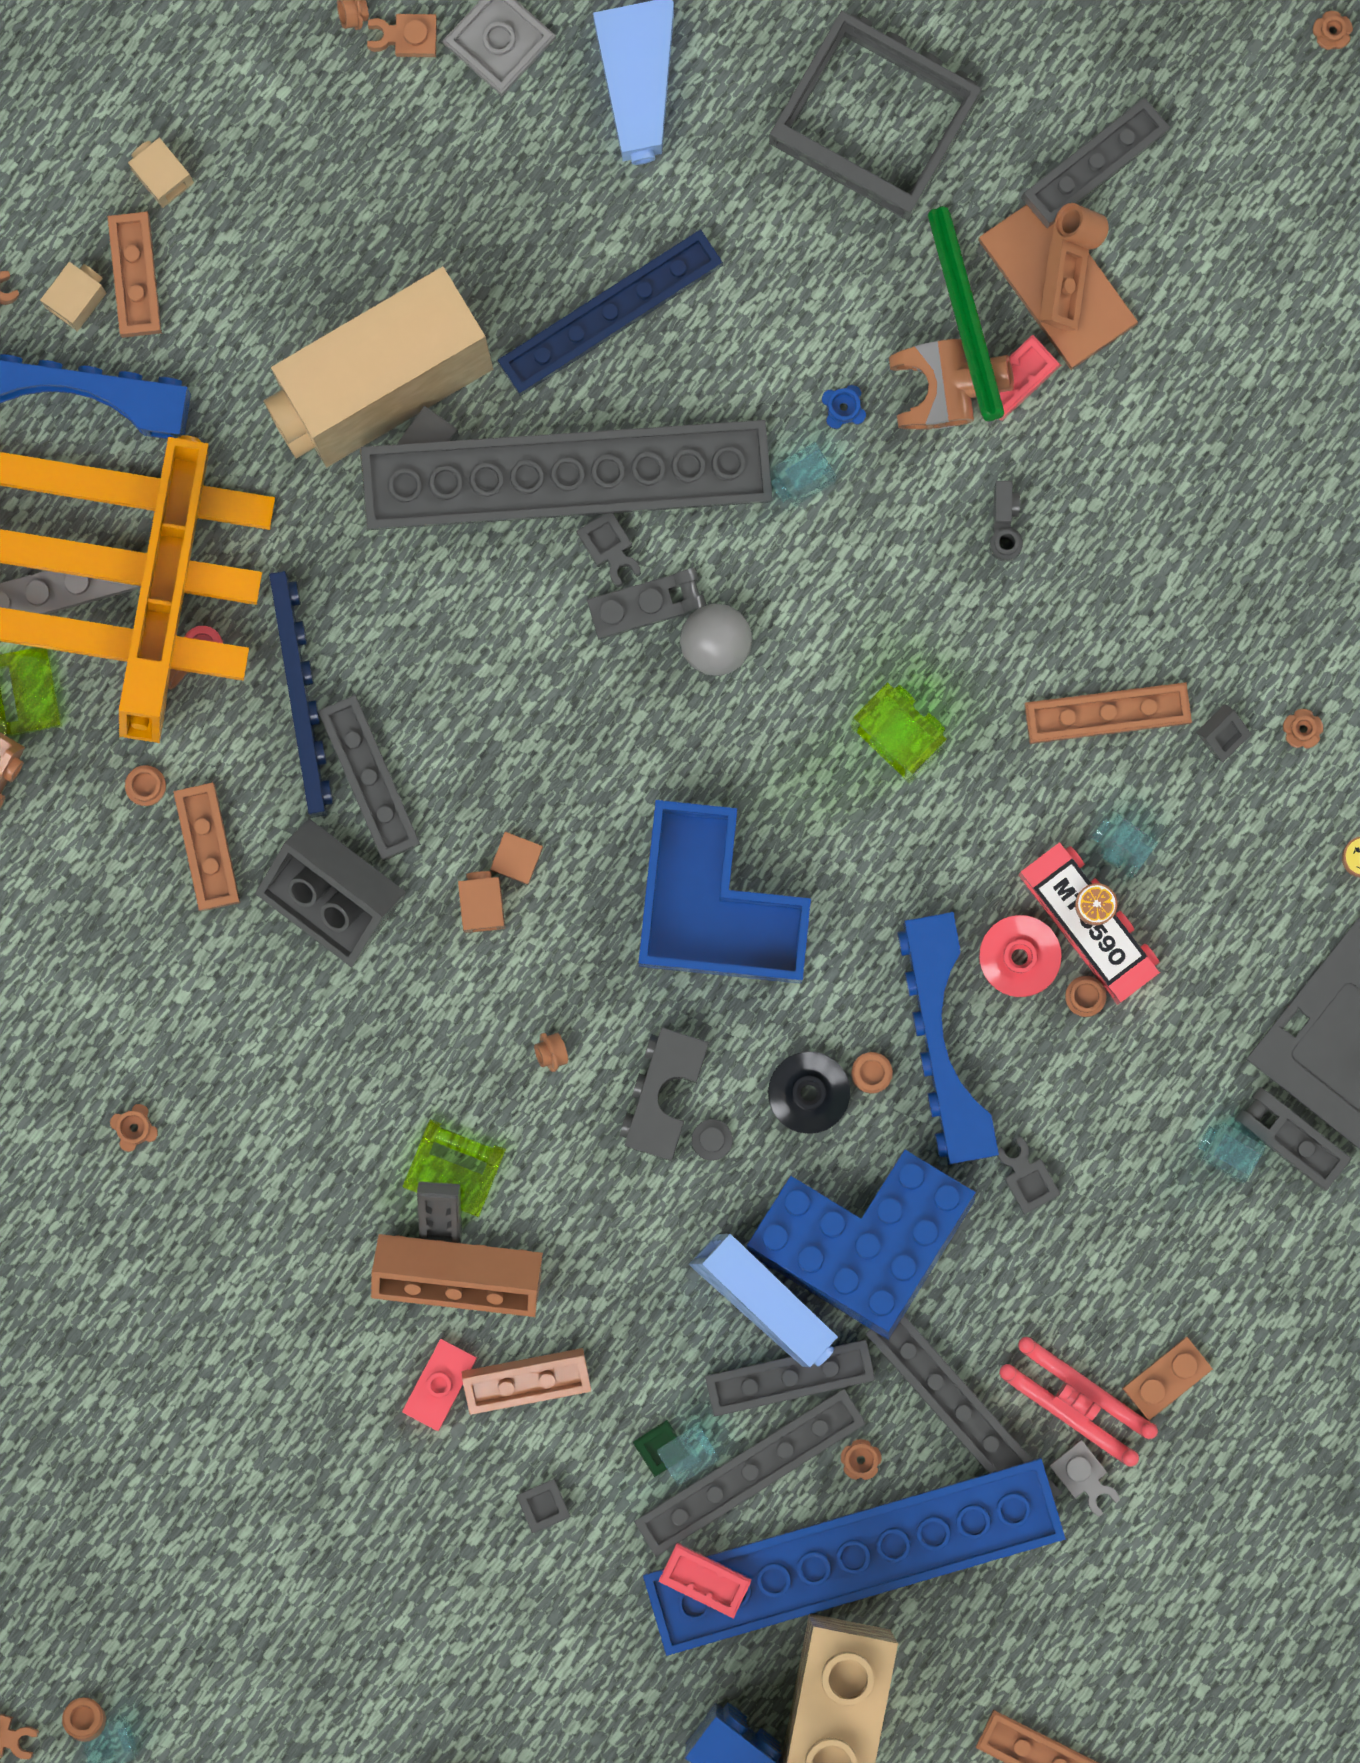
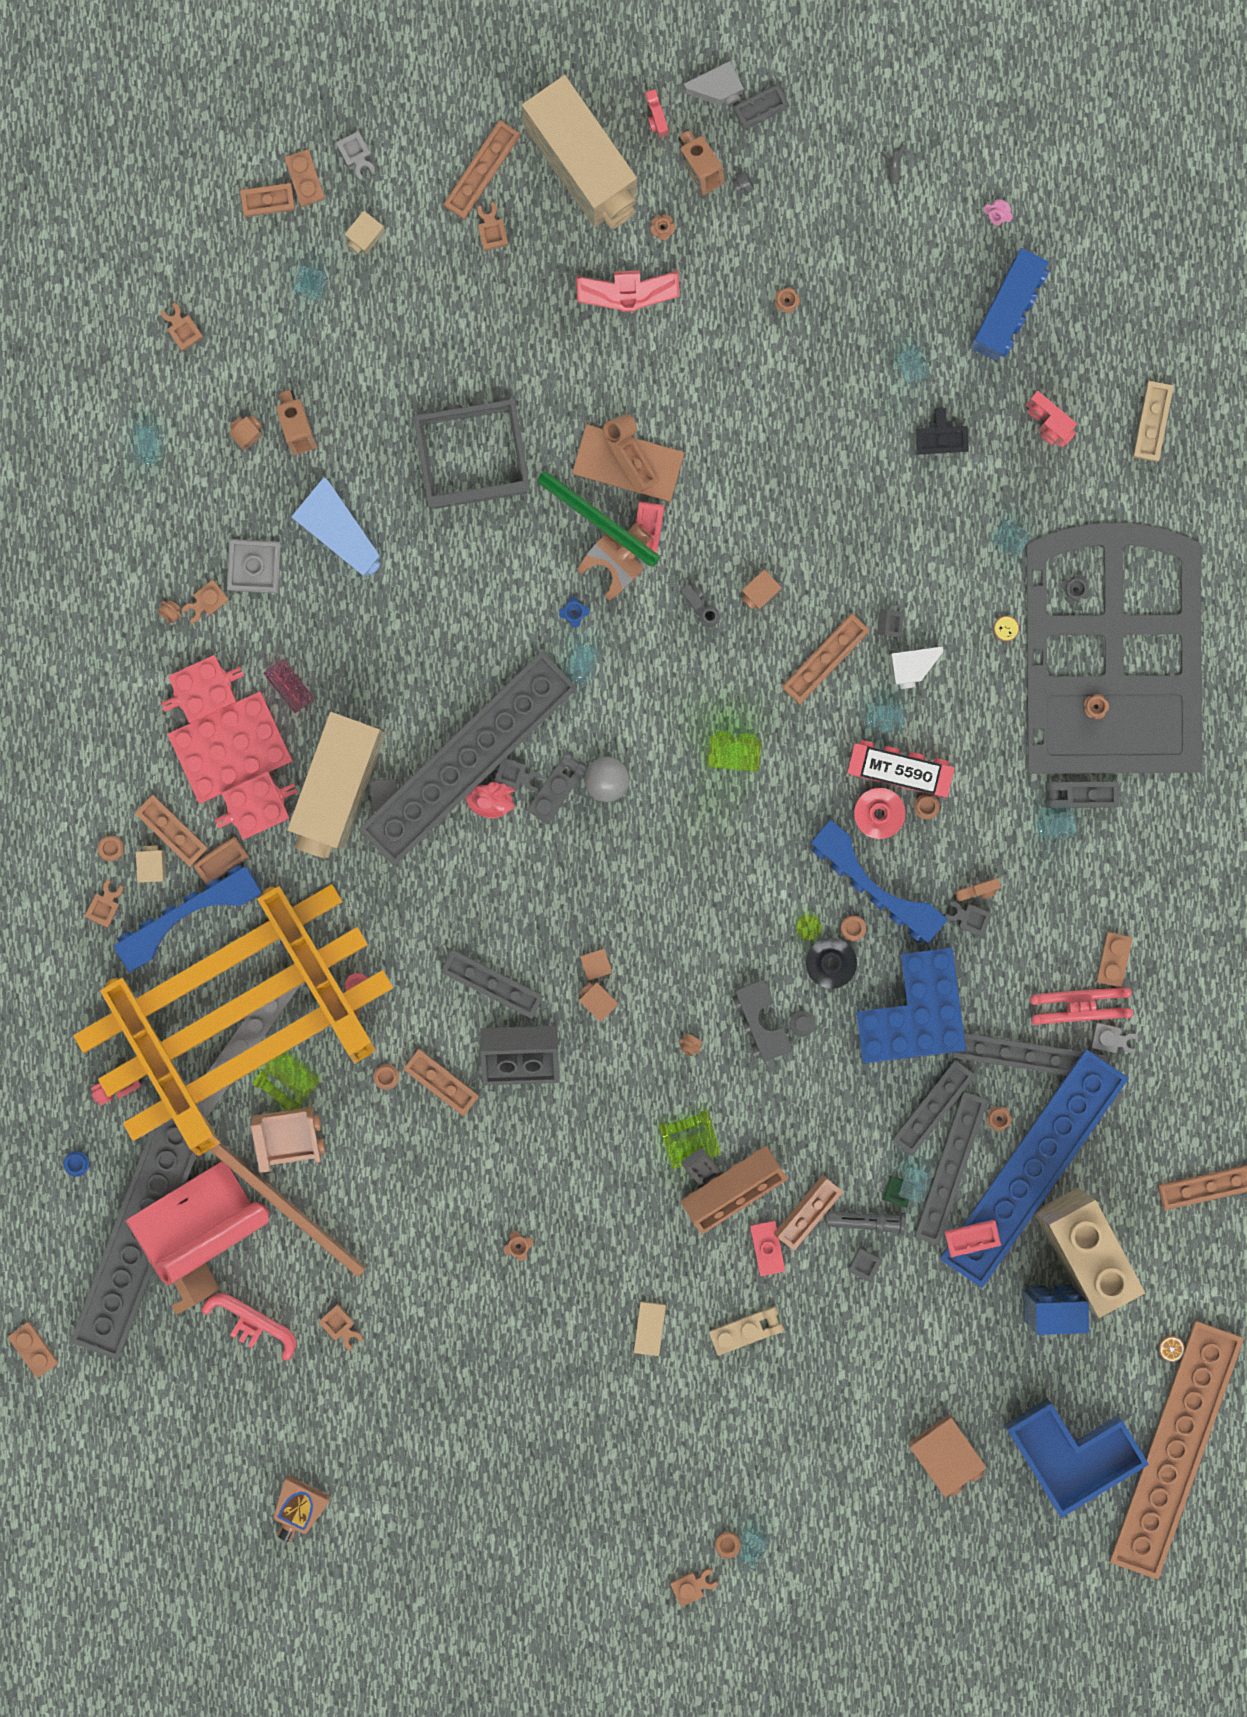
camera: 45 degrees left, 5 degrees up
(43, 237) = (110, 848): none -> nougat tile
(160, 171) = (141, 769): tan brick -> none
(165, 358) = (221, 860): none -> nougat tile
(210, 1364) = (649, 1328): none -> tan tile
(288, 229) = (229, 747): none -> coral piece
(298, 676) = (417, 963): dark blue plate -> none
(326, 1466) = (745, 1331): none -> tan plate
(421, 215) = (289, 686): none -> clear pink plate
(553, 551) = (491, 800): none -> coral hat
(605, 1467) = (880, 1222): none -> dark grey pin
(610, 312) = (421, 658): dark blue plate -> none
(695, 918) = (708, 923): blue piece -> none
(764, 1300) = (892, 1081): light blue slope -> none
(817, 1027) = (808, 927): none -> clear neon green tile
(1076, 1156) = (985, 889): none -> nougat plate
(1094, 563) = (760, 591): none -> nougat brick
(1096, 161) = (600, 389): dark grey plate -> none
(1096, 904) = (897, 760): nougat tile -> none
(1210, 807) = (913, 666): none -> white slope
(1227, 72) = (627, 291): none -> coral plate
(1310, 737) = (920, 589): nougat plate -> none

